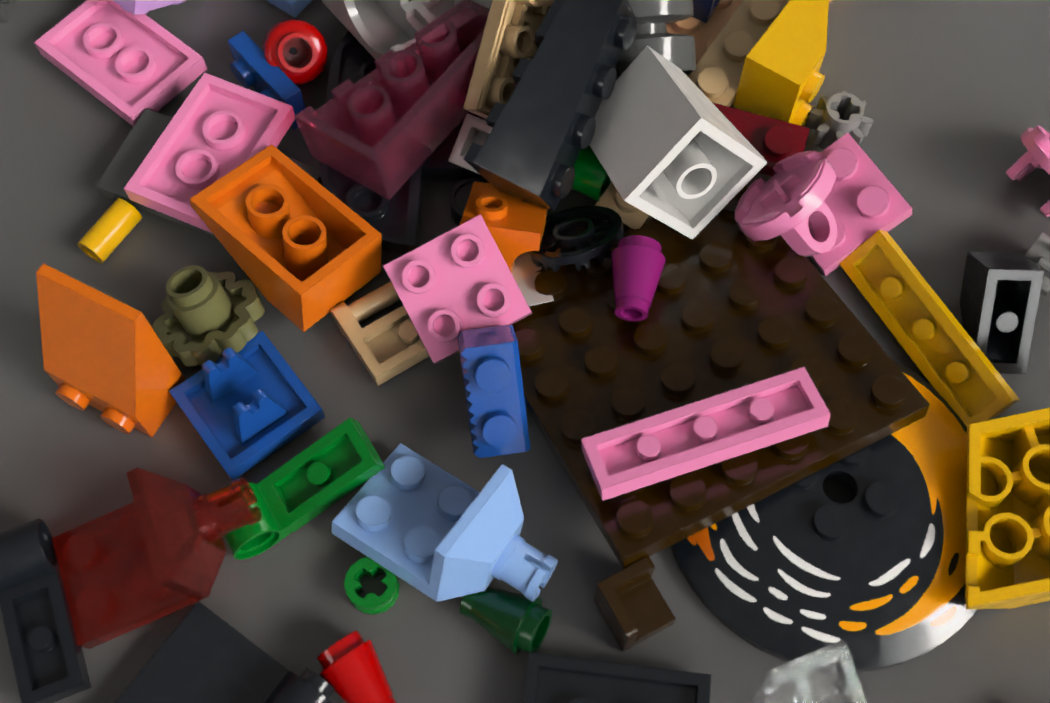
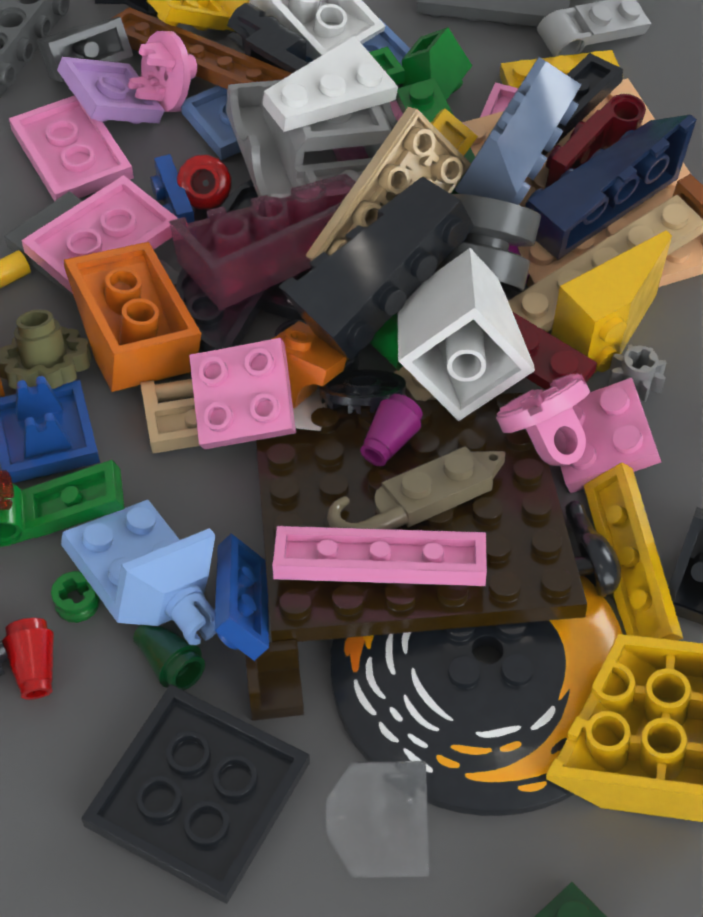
camera: 20 degrees right, 10 degrees down
(494, 391) = (234, 478): blue brick -> none
(569, 530) = (241, 598): none -> blue plate
(703, 339) = (426, 490): none -> dark tan plate
(895, 336) = (596, 553): none -> black piece

